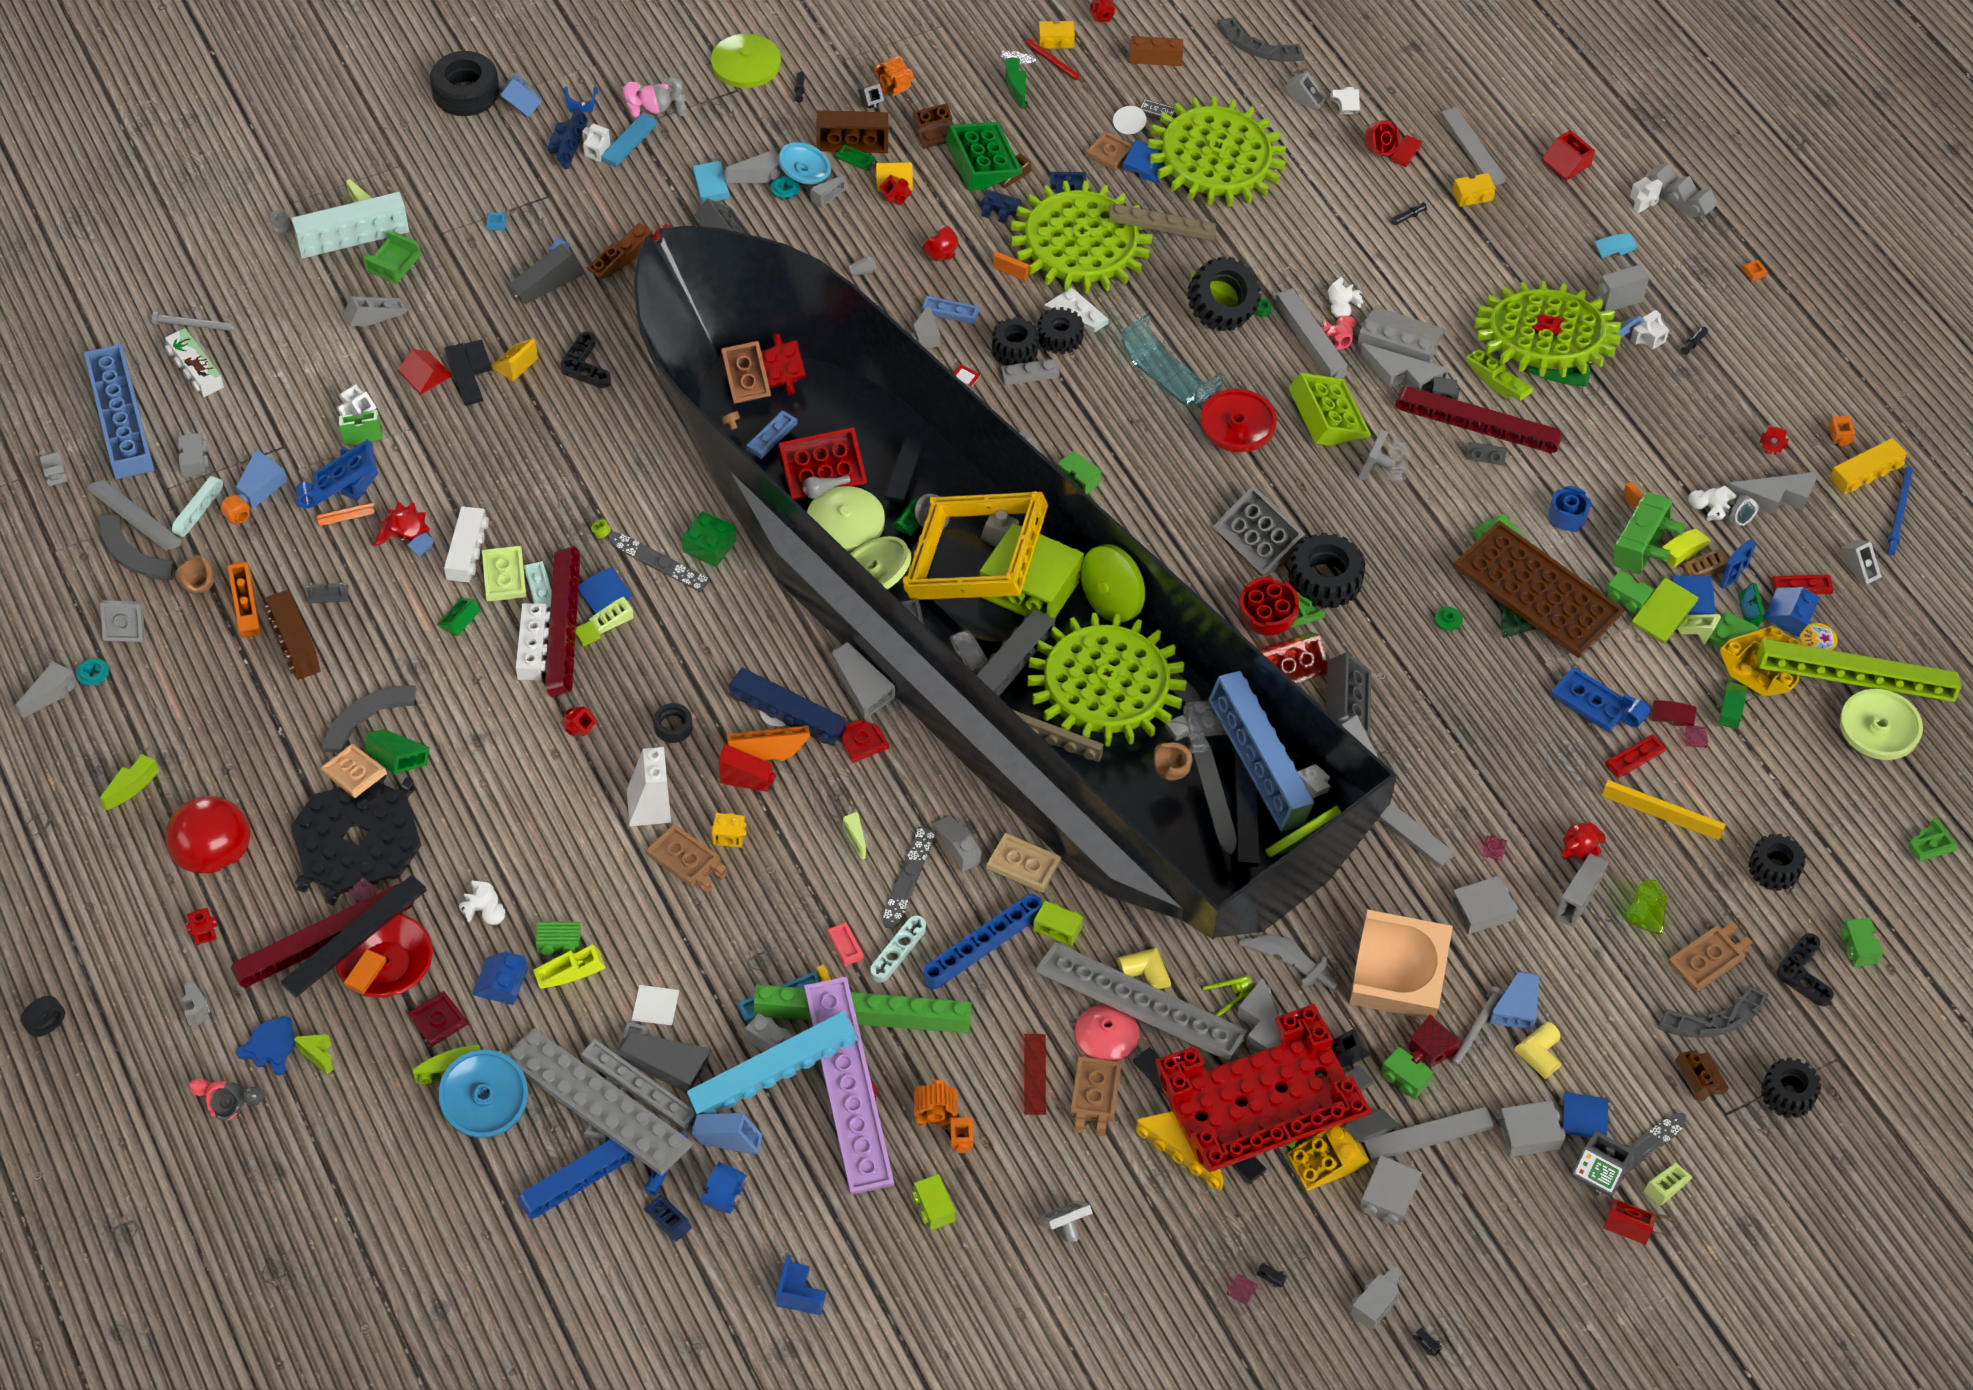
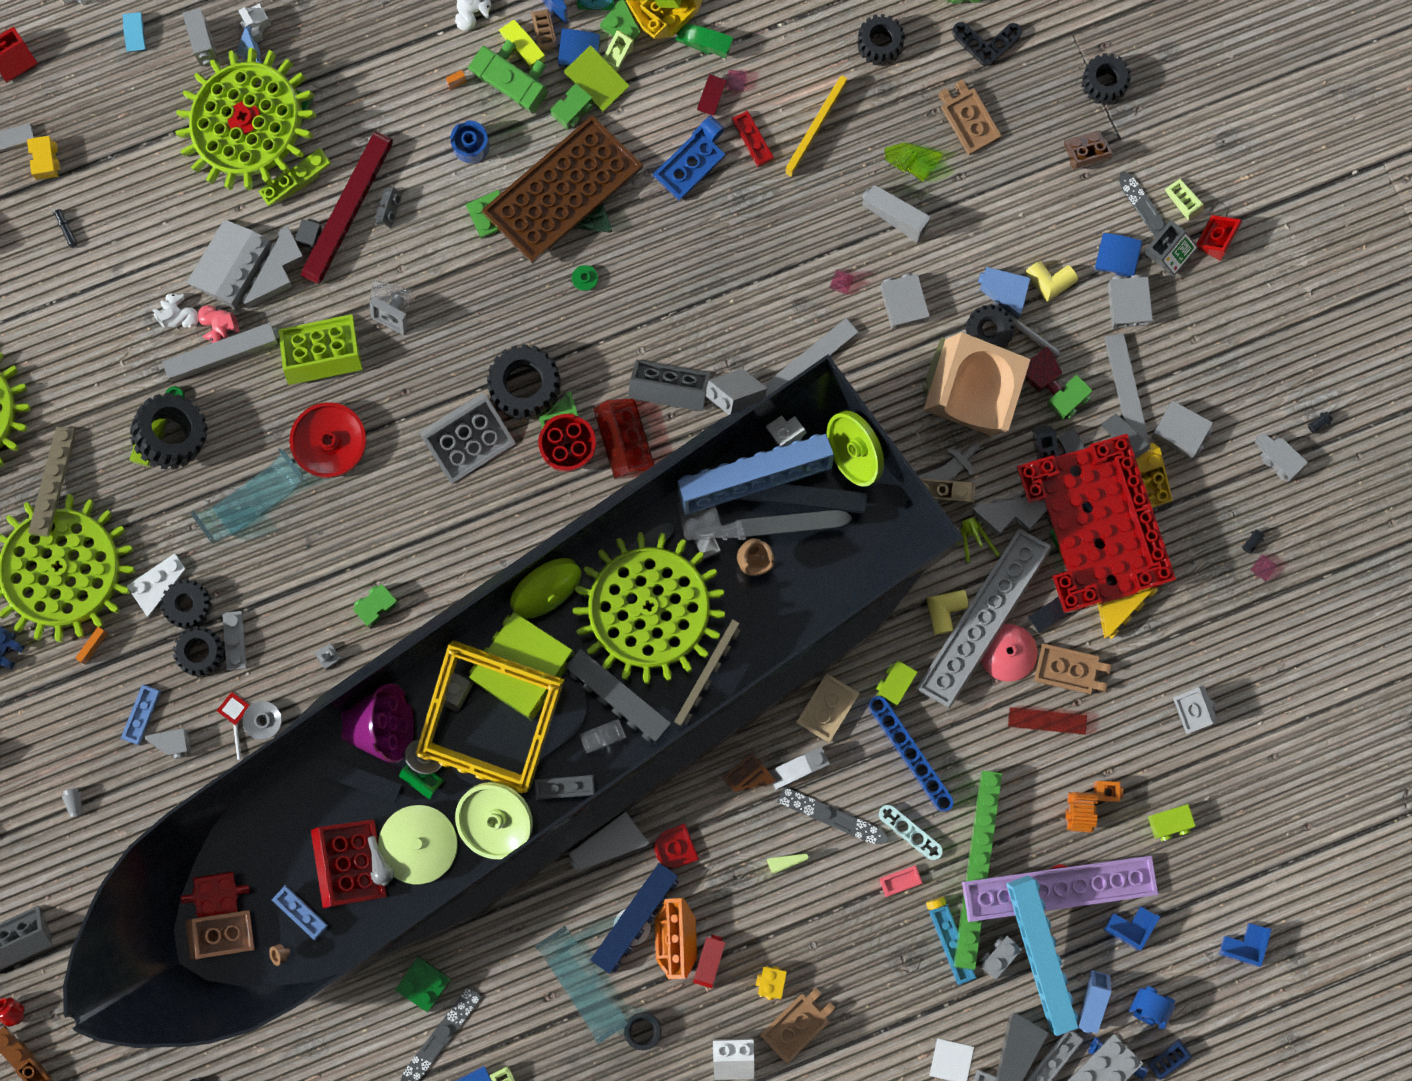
camera: 80 degrees left, 25 degrees up
(722, 667) = (582, 984): none -> clear light blue windscreen
(805, 1171) = (1134, 933): none -> blue panel
(942, 245) = (57, 715): red cylinder -> none
(944, 795) = (748, 775): none -> reddish brown wing
(961, 468) = (380, 723): none -> magenta cone
(1278, 955) = (951, 490): none -> tan slope
(1469, 971) = (992, 313): none -> black tyre
(1582, 840) = (847, 203): red head -> none
(1715, 1023) = (1032, 123): dark grey tile -> none

